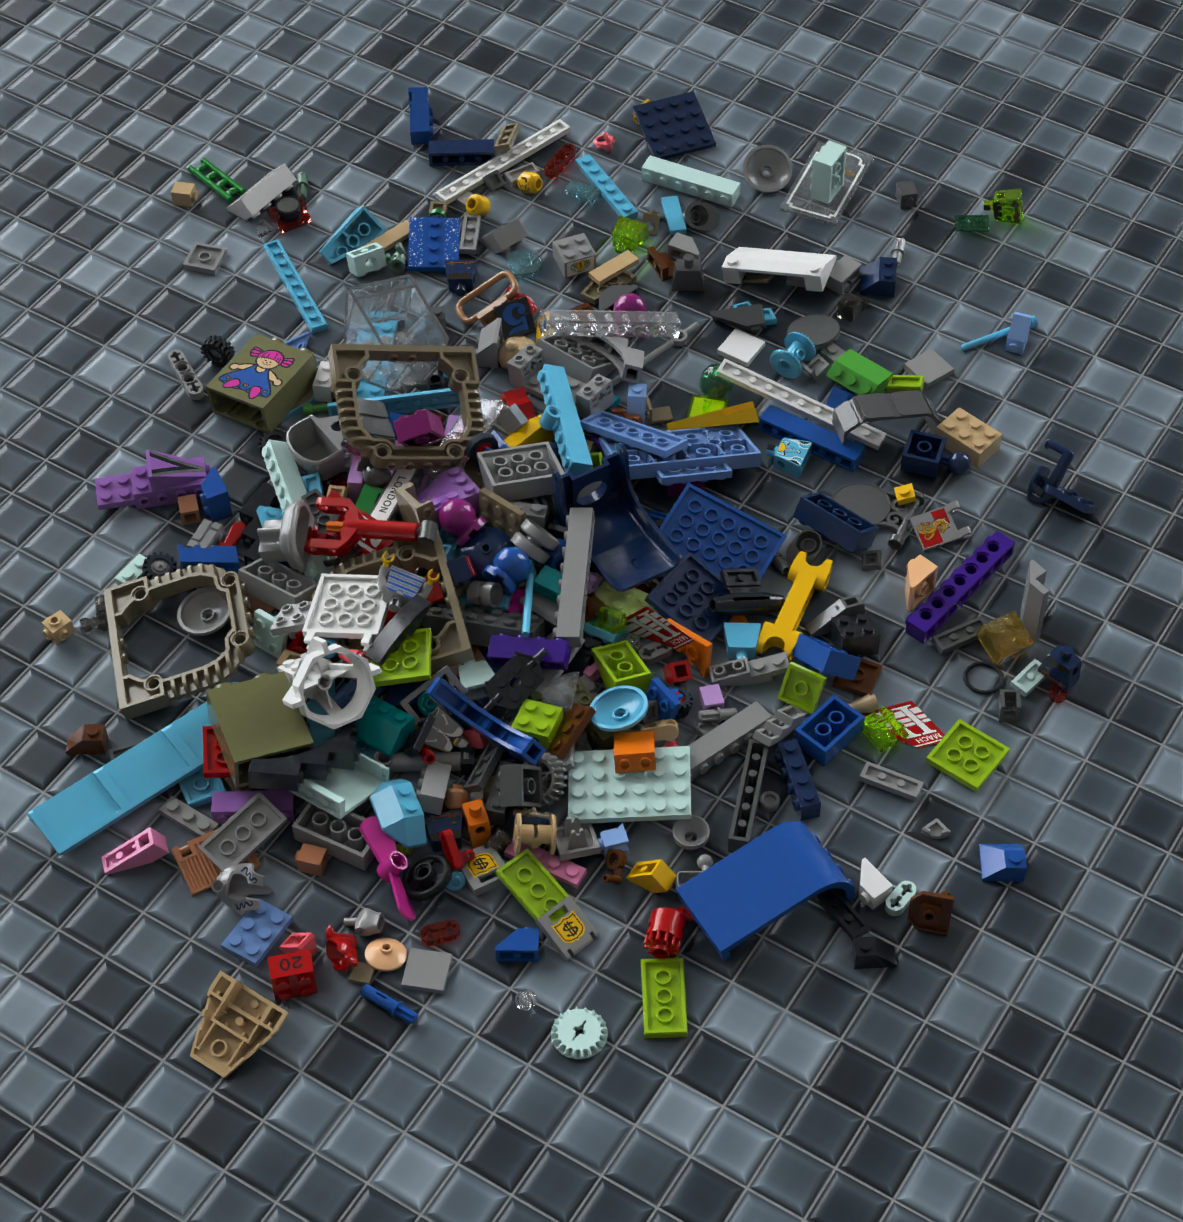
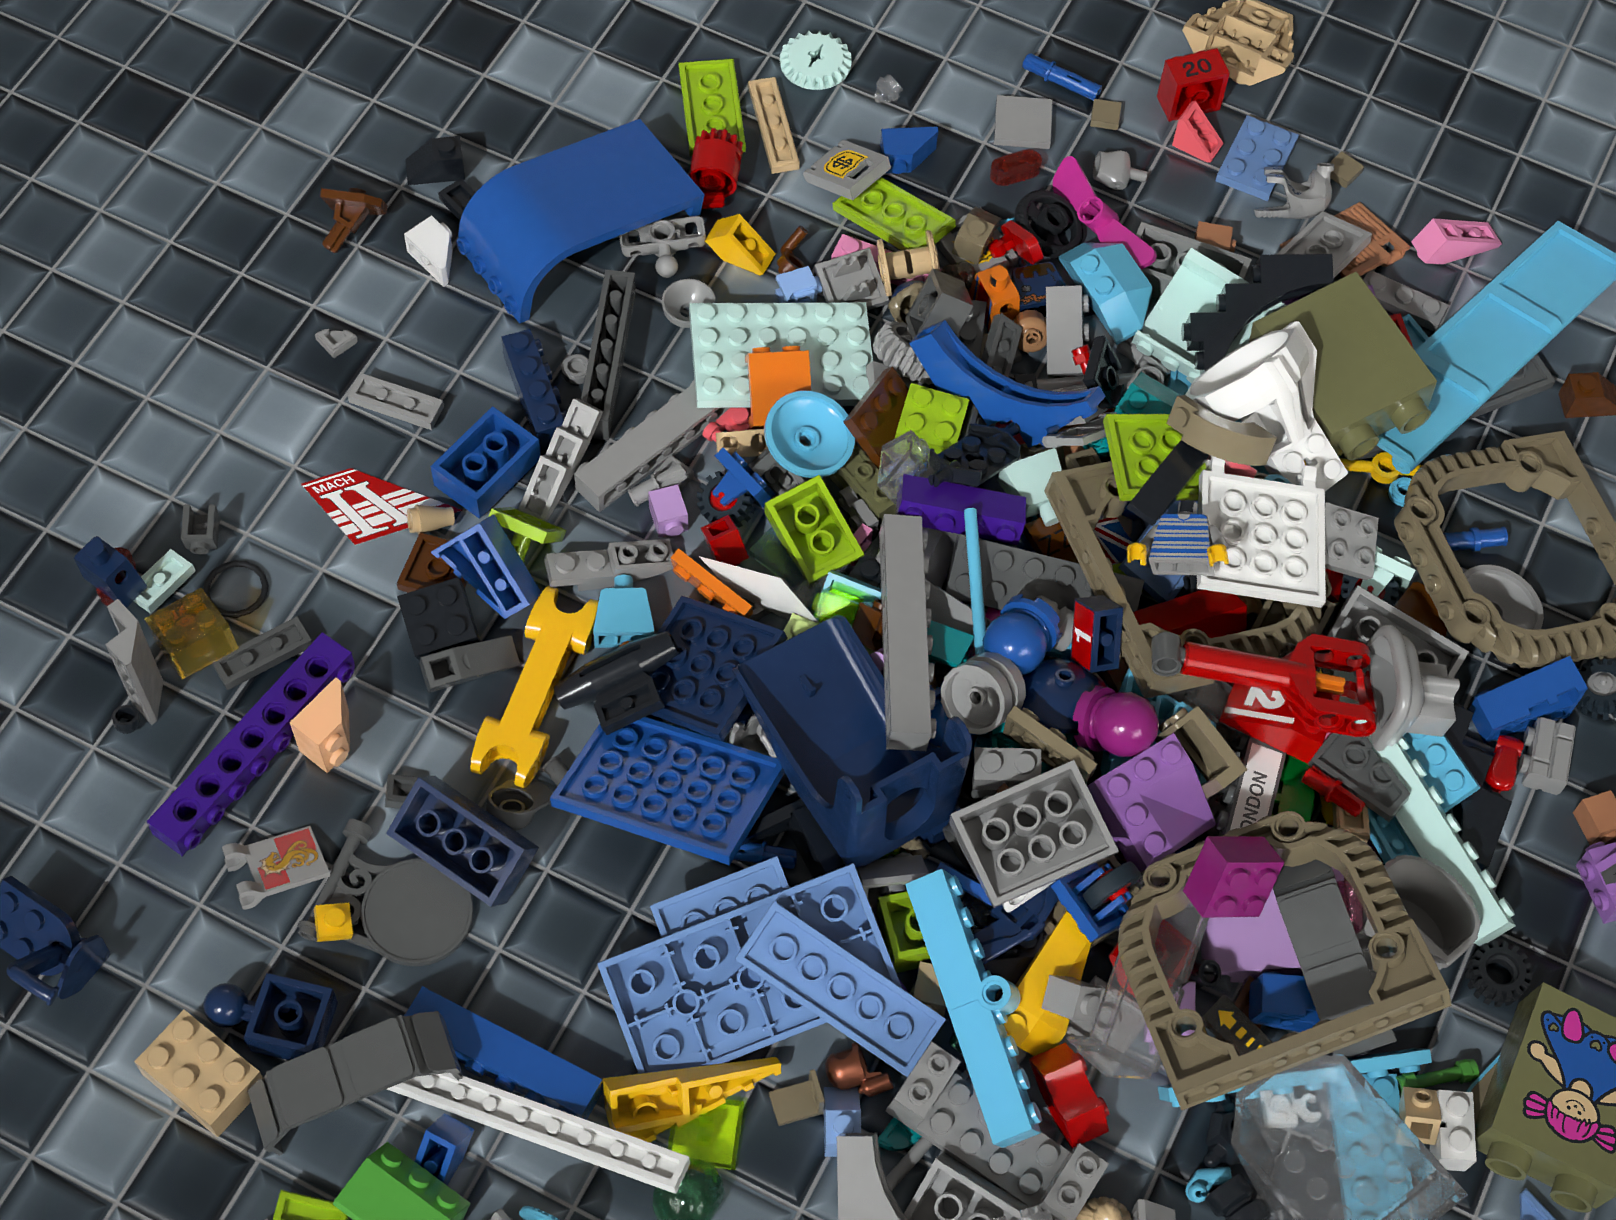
camera: 170 degrees right, 10 degrees up
(195, 918) = (1345, 169): none -> dark tan tile
(198, 659) = (1477, 539): none -> blue pin
(215, 497) = (1562, 830): blue slope -> none
(341, 950) = (1139, 128): red hair -> none
(355, 638) = (1219, 436): none -> dark tan arch
(385, 954) = (1081, 147): light nougat dish -> none
(481, 862) = (975, 235): none -> dark tan slope
(617, 980) = (773, 125): none -> tan tile
(790, 455) = (543, 1009): medium azure torso -> none
(878, 732) = (409, 480): clear neon green plate -> none
(897, 895) = (391, 240): light aqua beam -> none
(967, 755) = (276, 448): lime plate -> none
(1002, 862) = (243, 295): blue slope -> none

